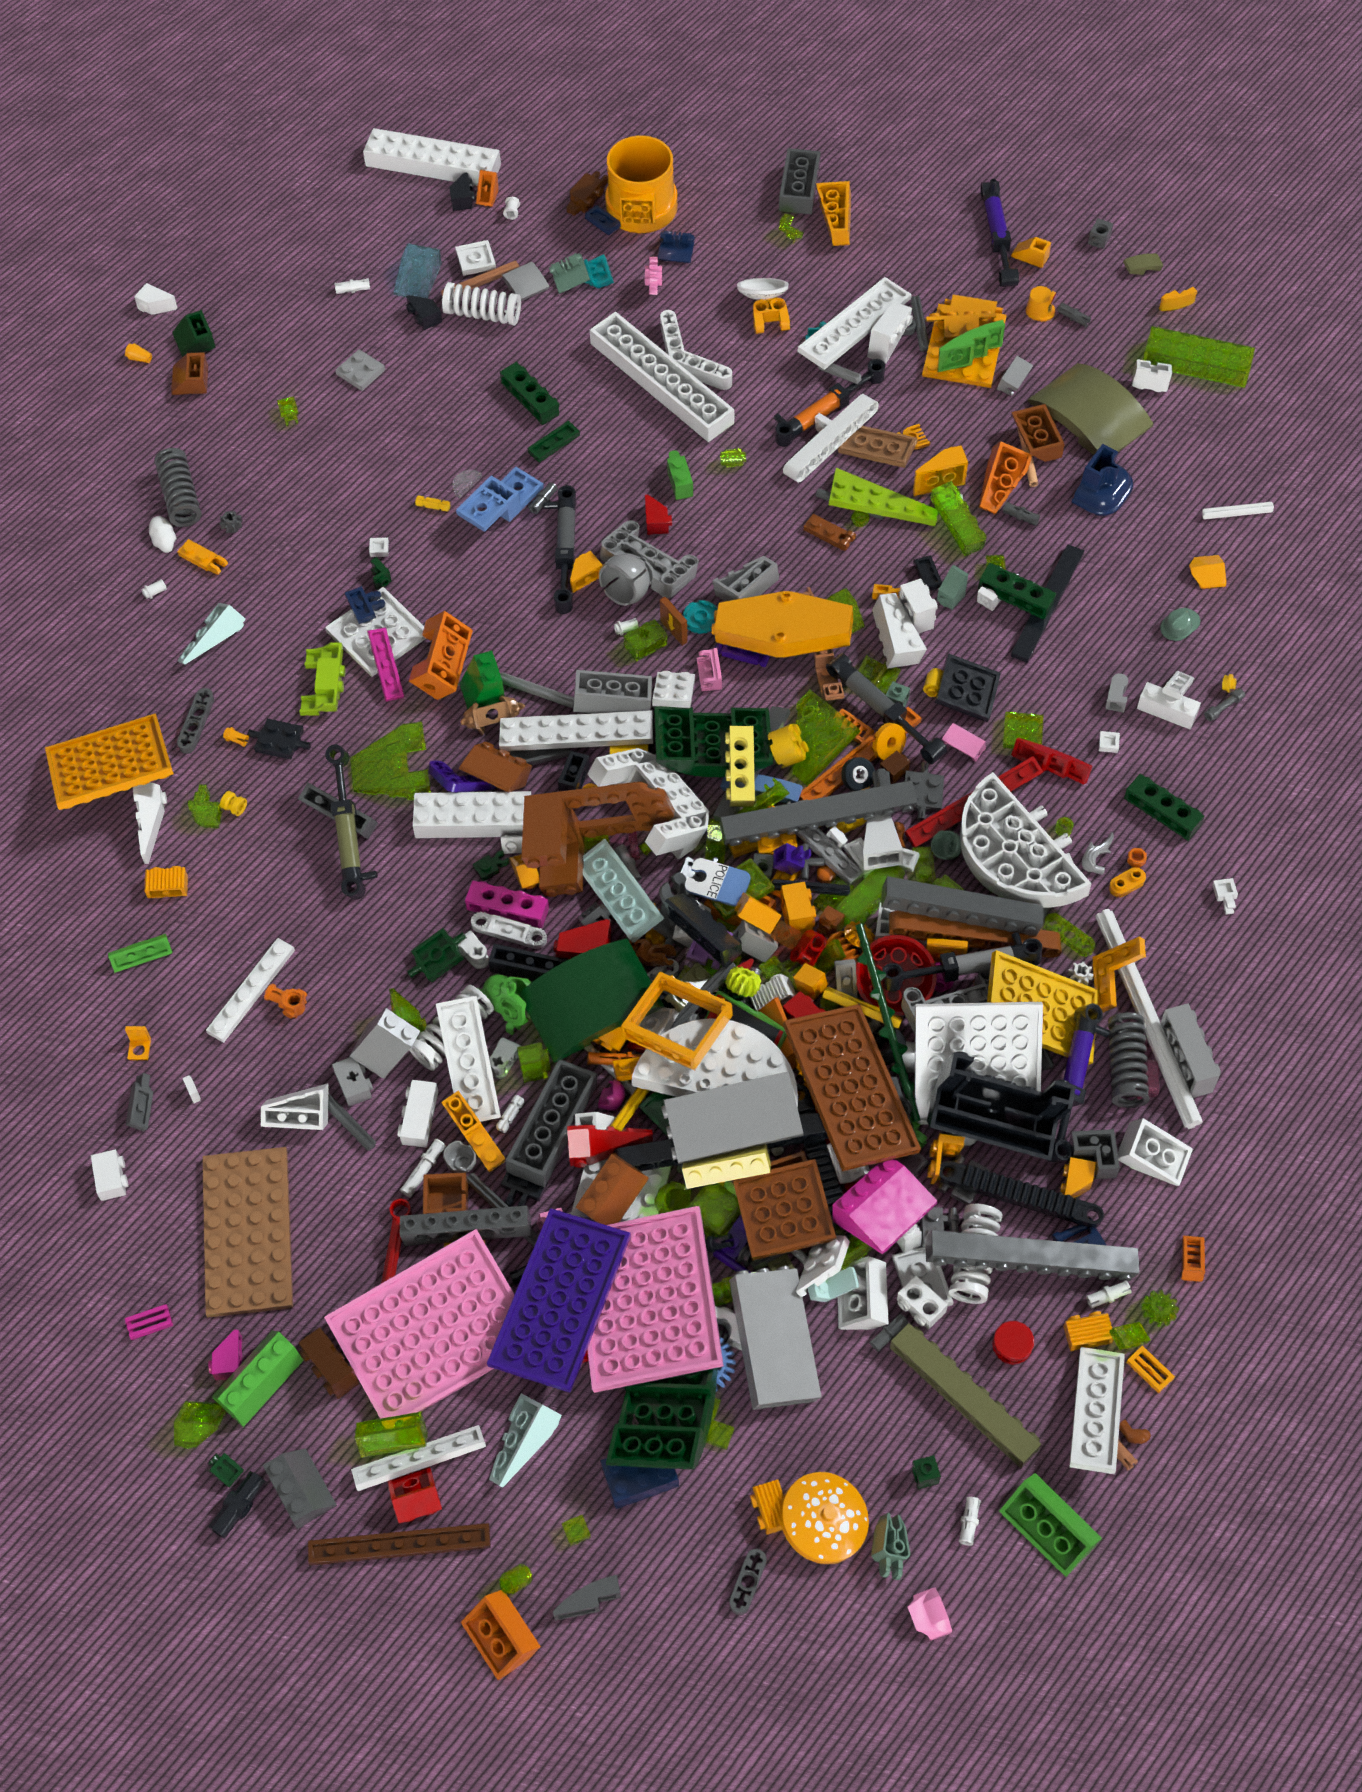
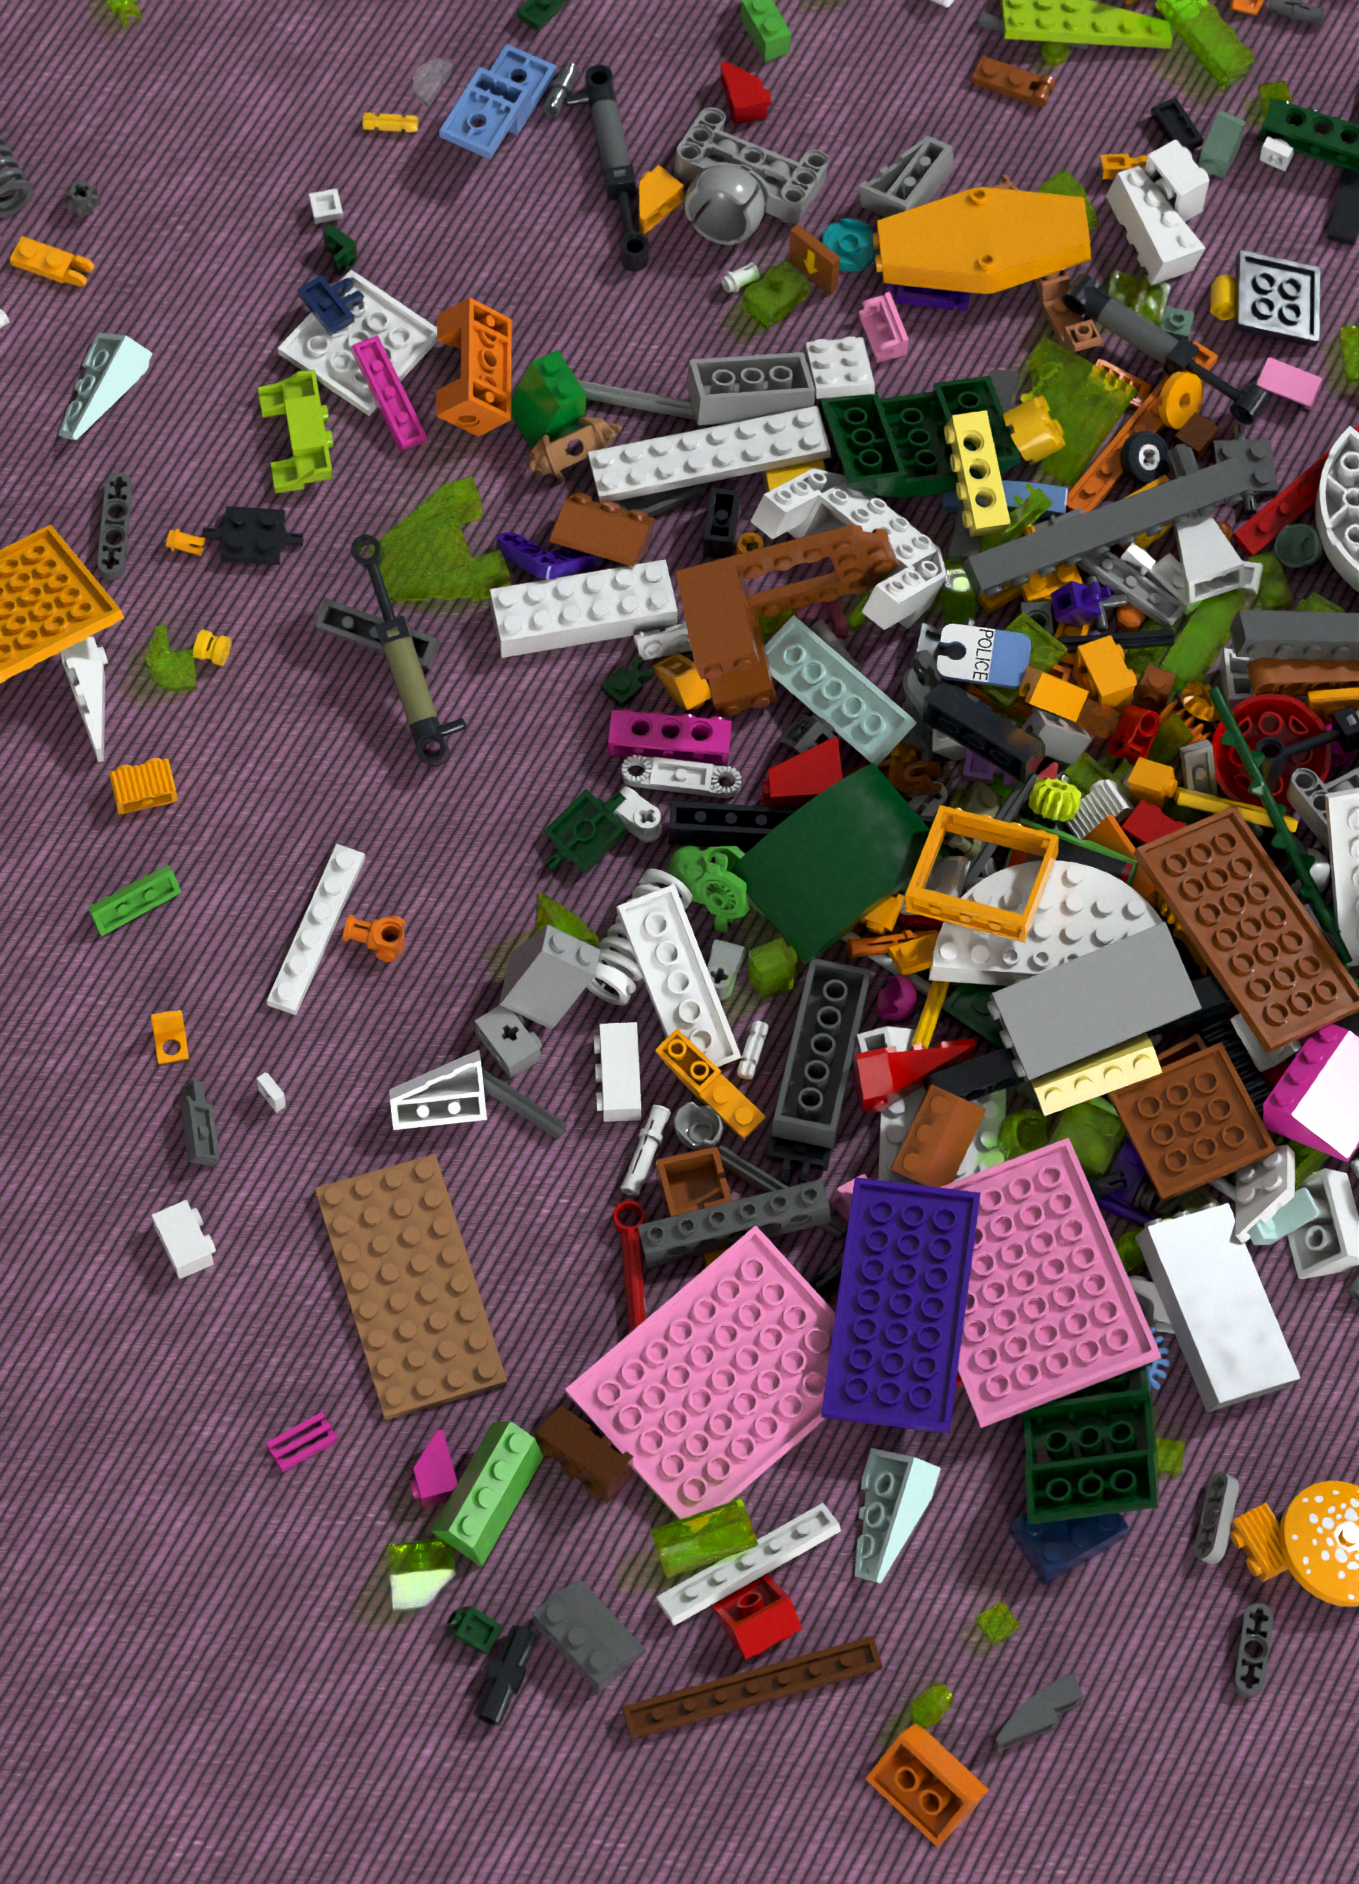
camera: 15 degrees left, 5 degrees up
(743, 1484) = (1221, 1498): none -> light grey beam

